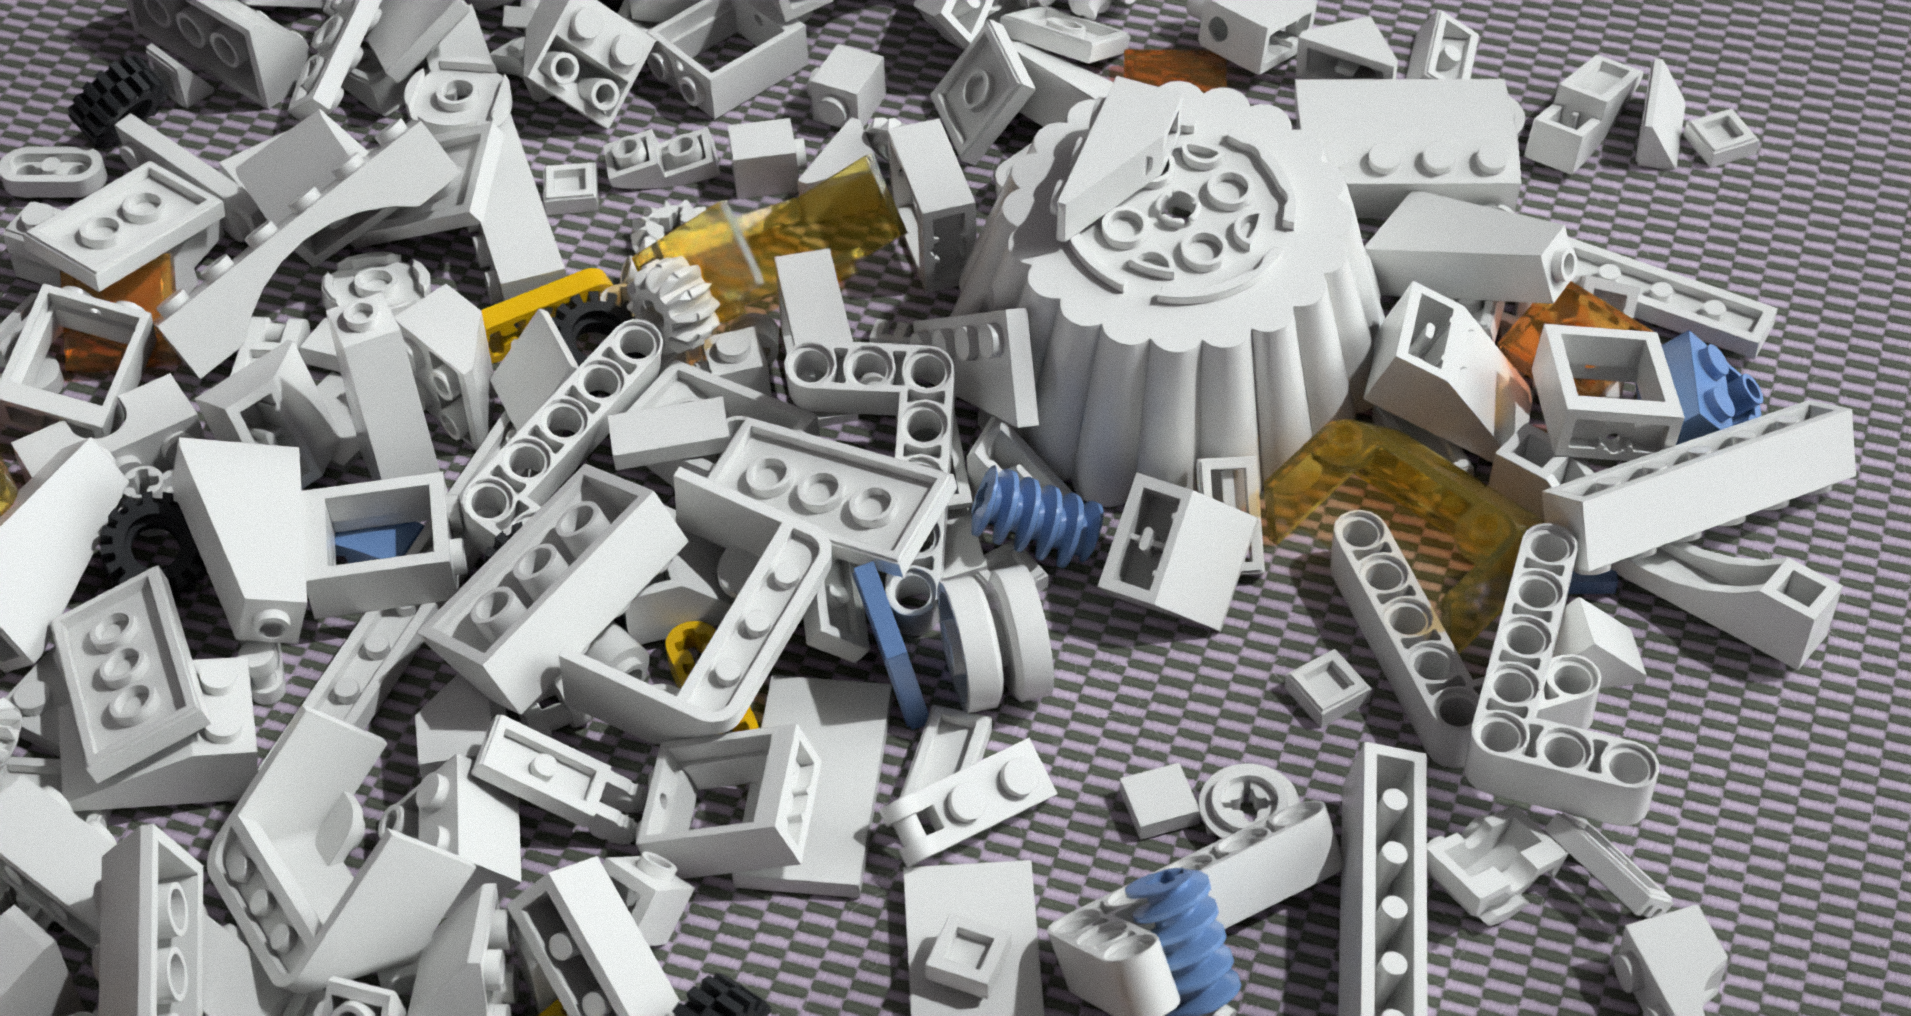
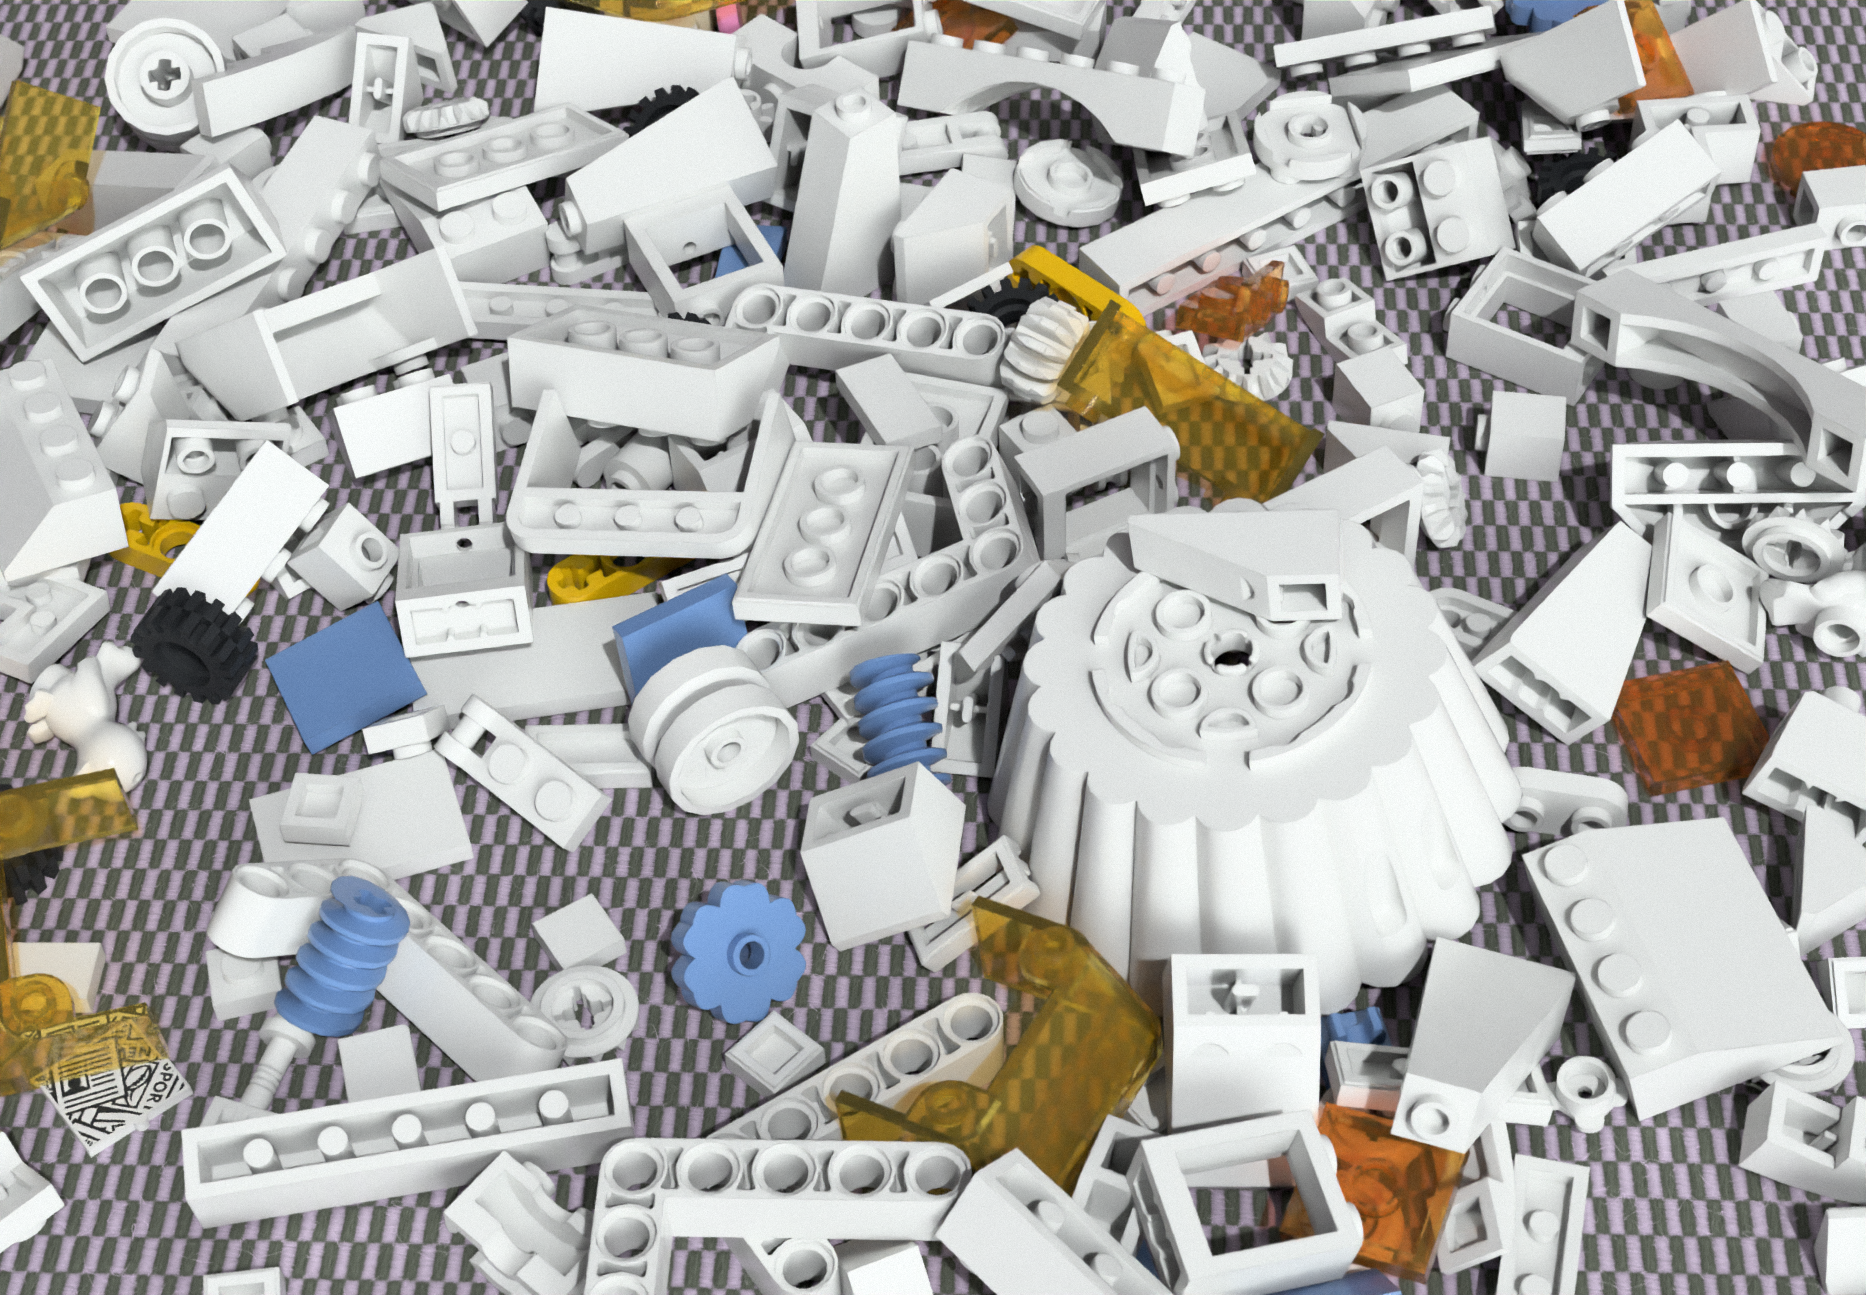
camera: 75 degrees right, 0 degrees up
(624, 206) = (1235, 305): none -> clear orange bracket
(784, 930) = (345, 677): none -> medium blue tile
(885, 881) = (407, 733): none -> white plate
(982, 92) = (1554, 536): white tile -> none
(1232, 676) = (738, 951): none -> medium blue plant
(1298, 955) = (379, 1064): none -> white panel

